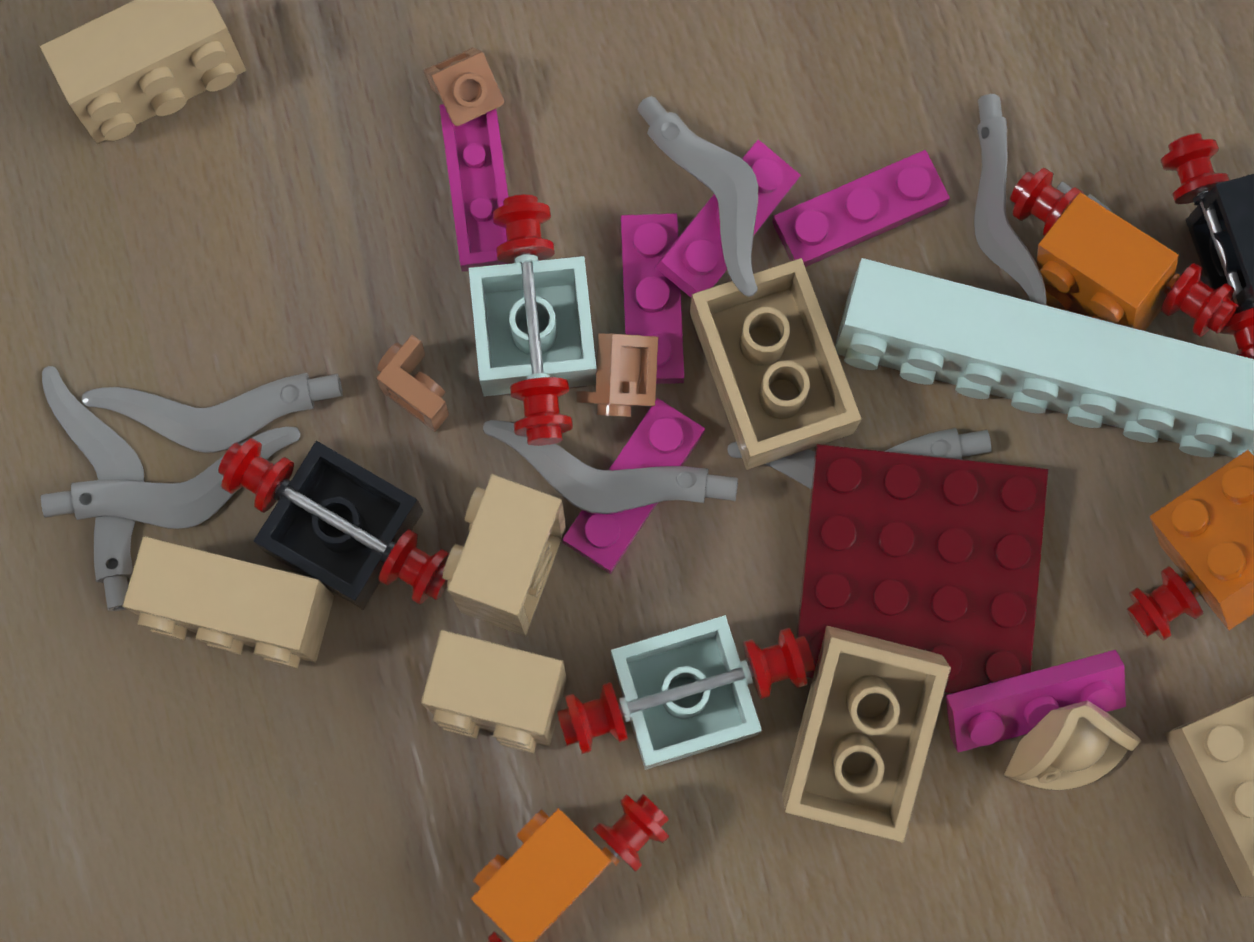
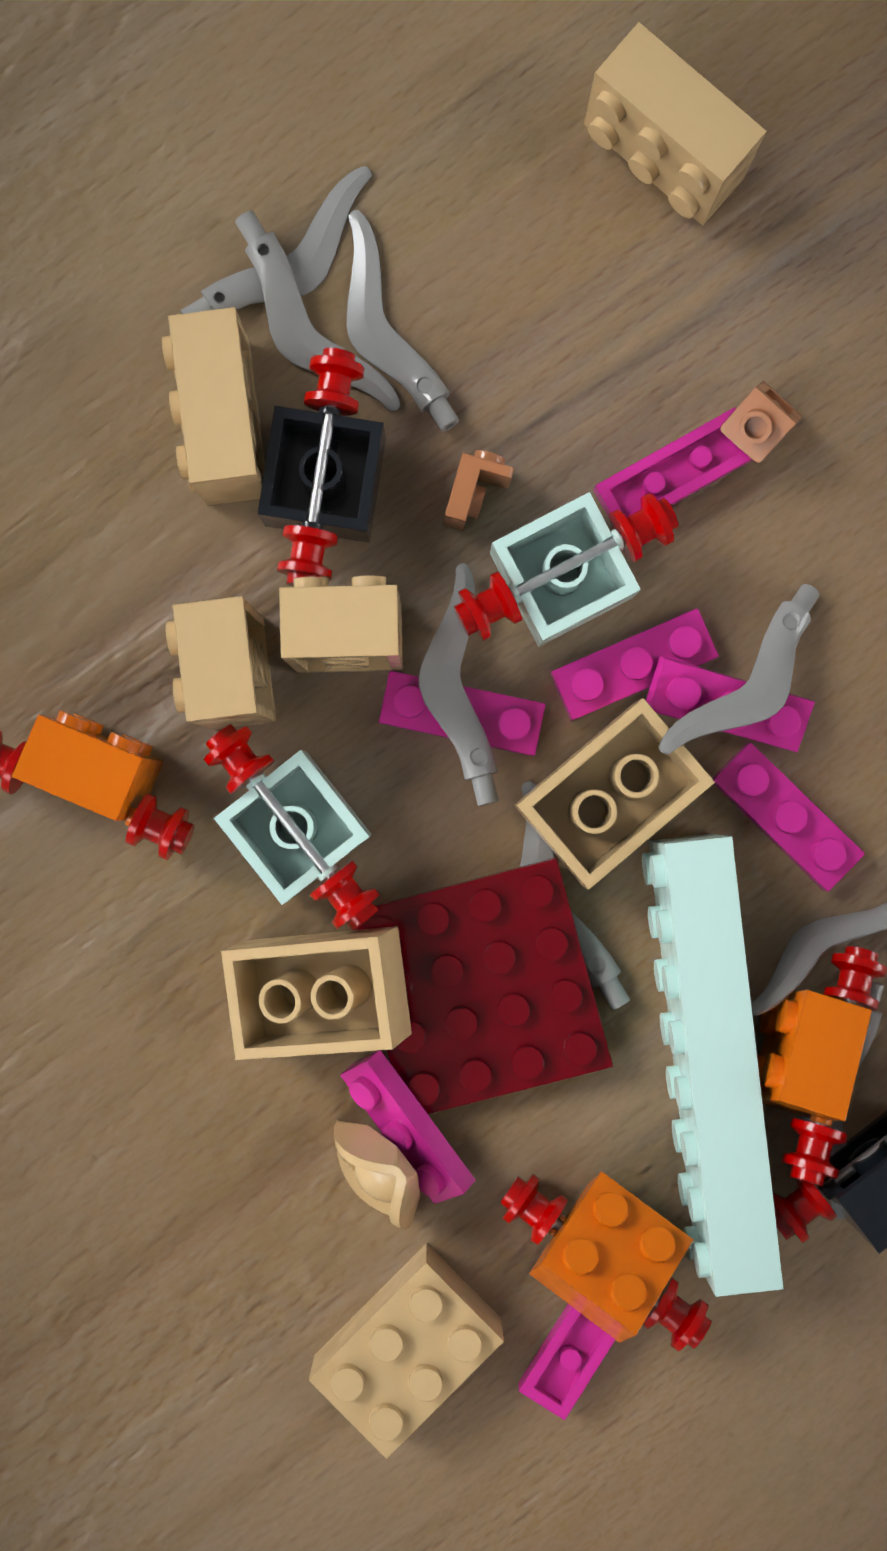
camera: 65 degrees right, 10 degrees up
(623, 374) = (551, 666): nougat bracket -> none

